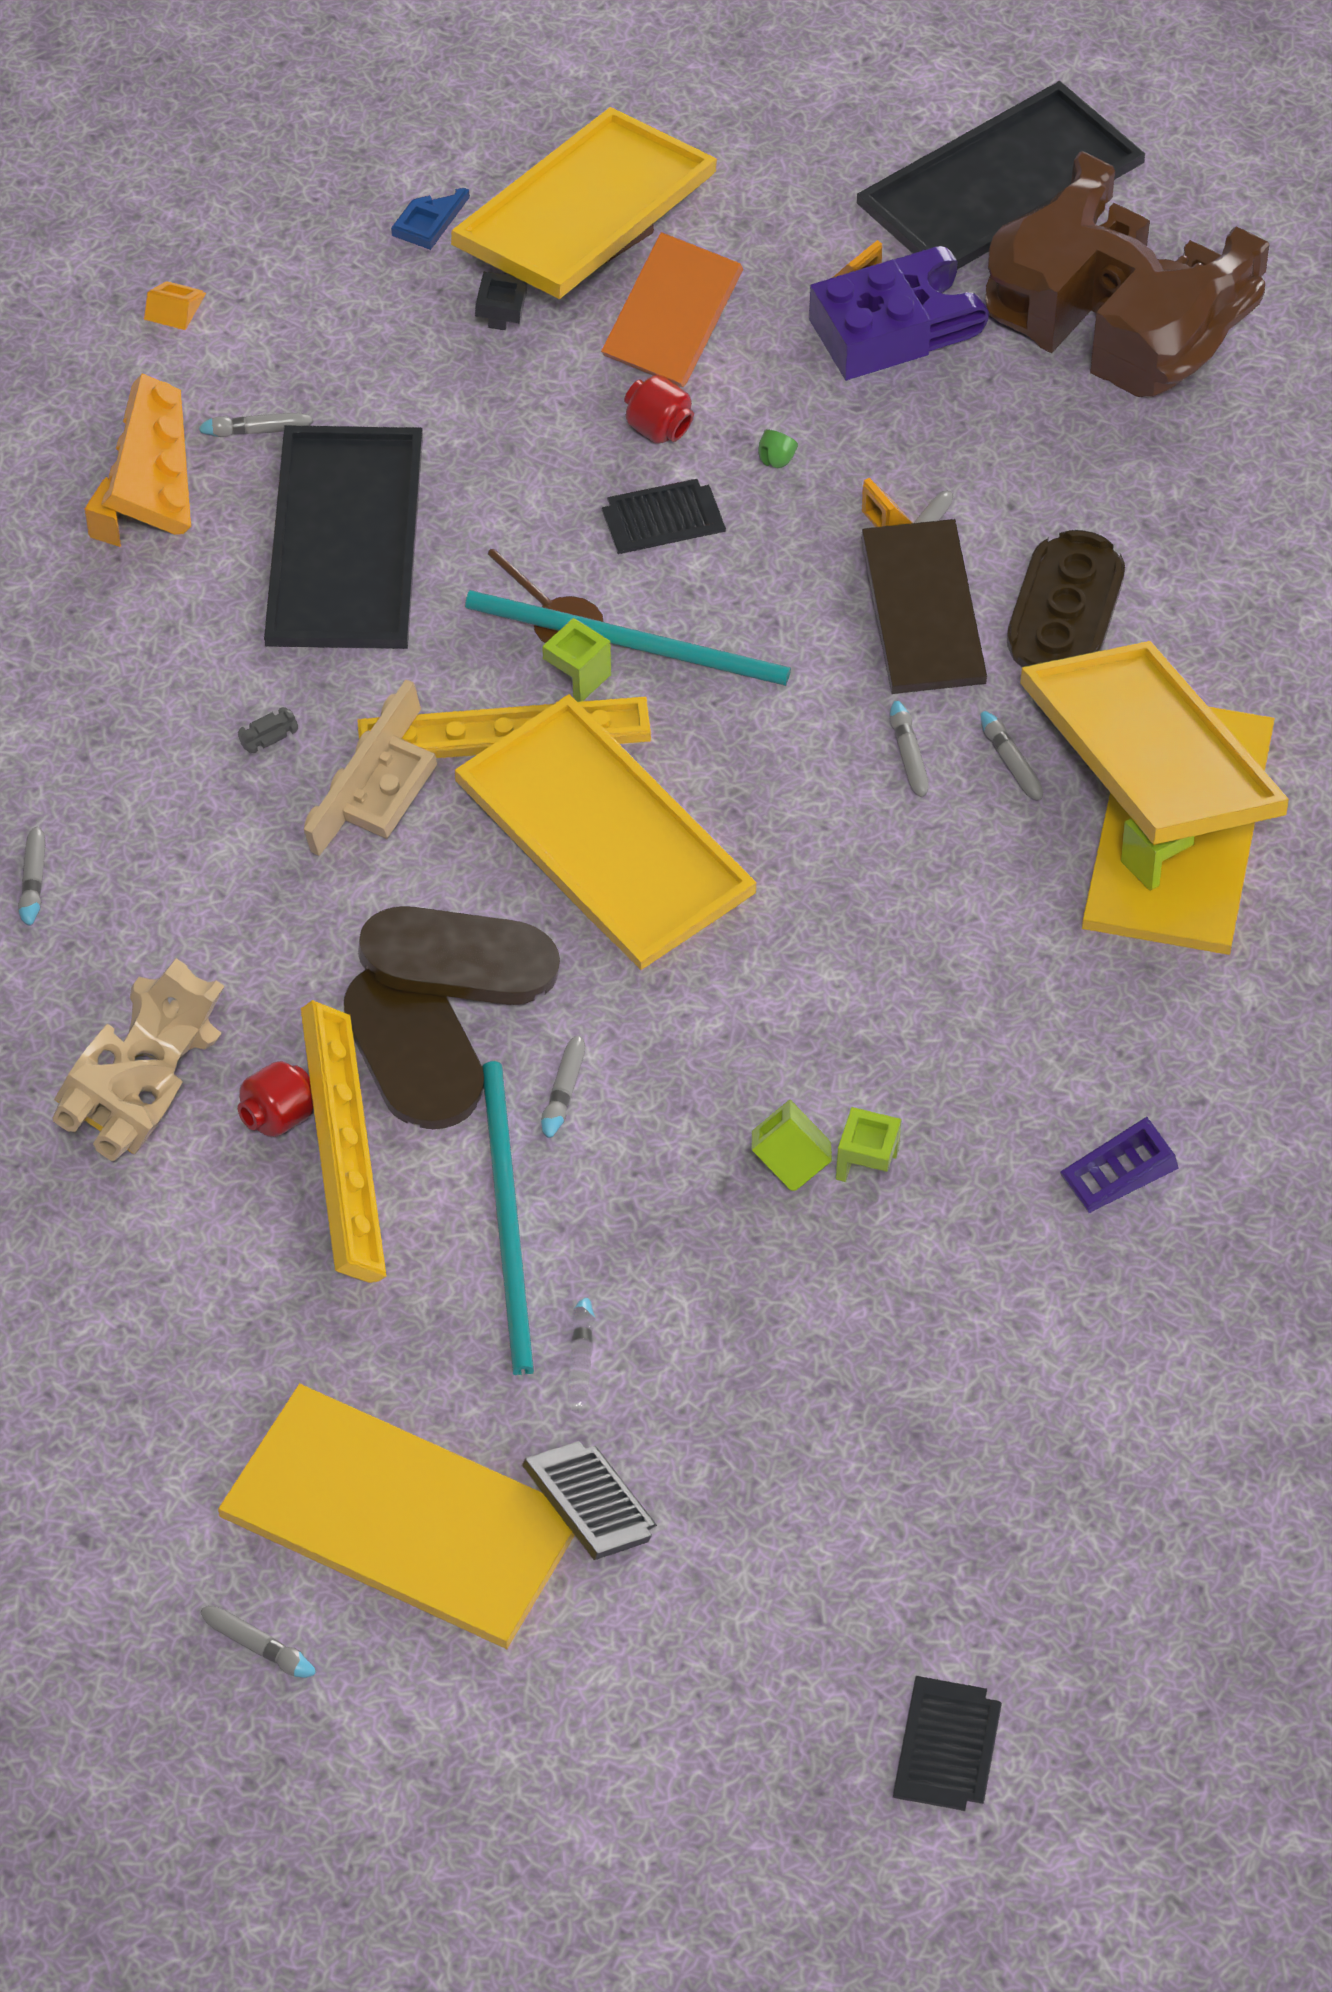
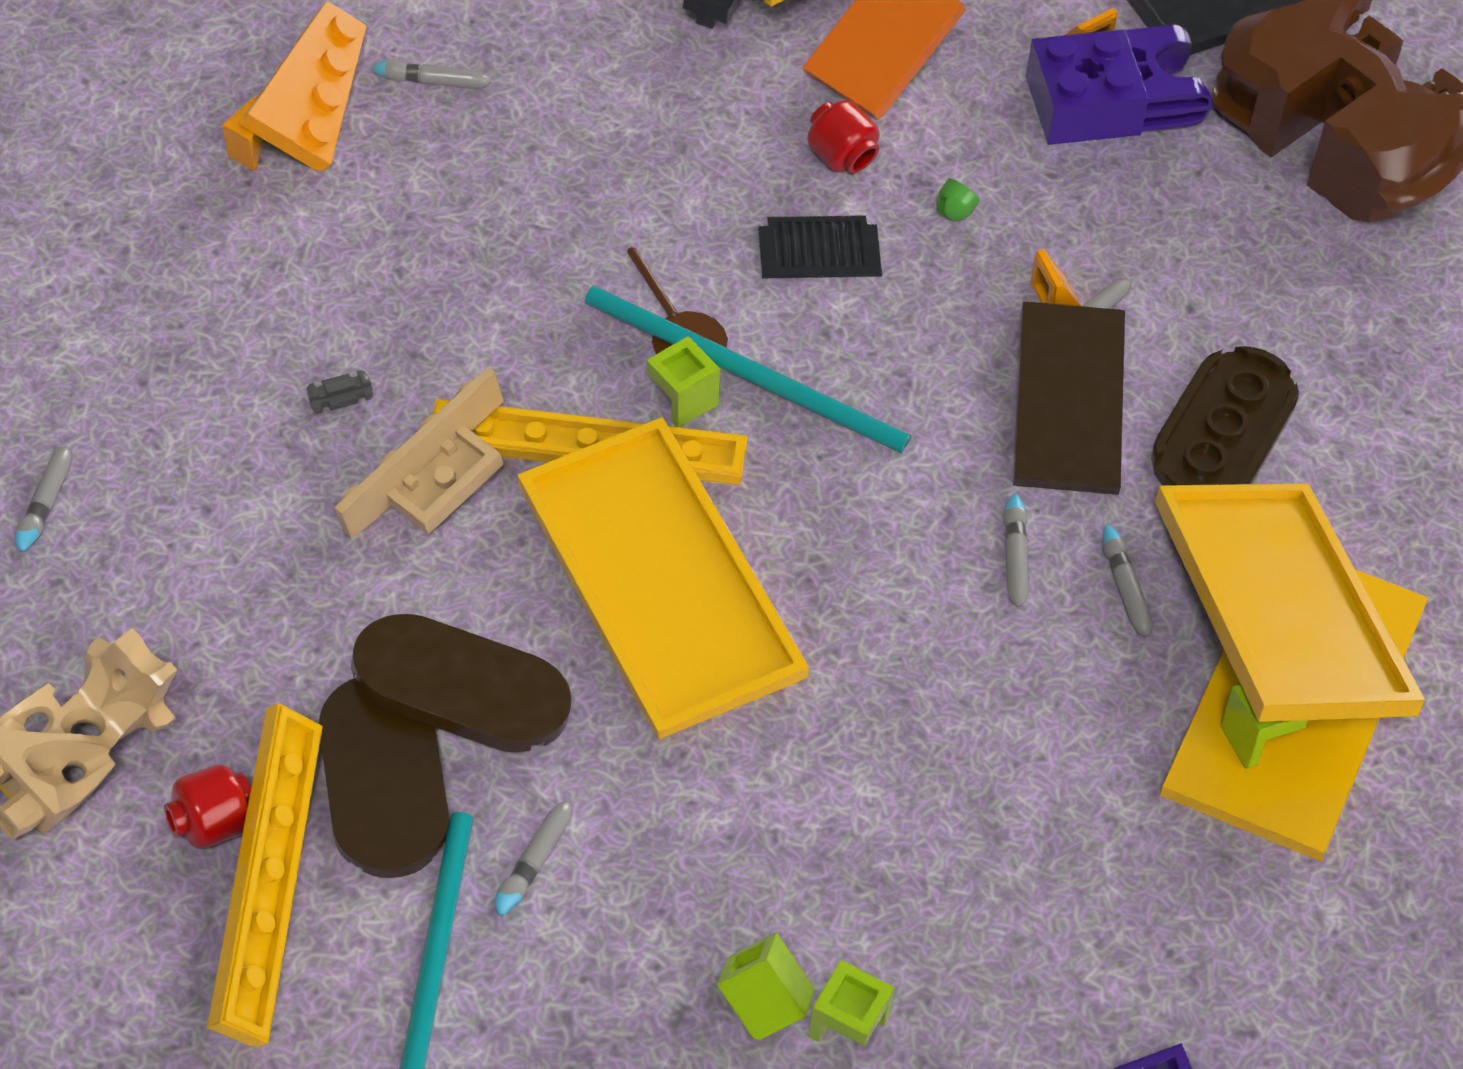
camera: 10 degrees right, 0 degrees up
(344, 537) = (483, 207): black tile -> none

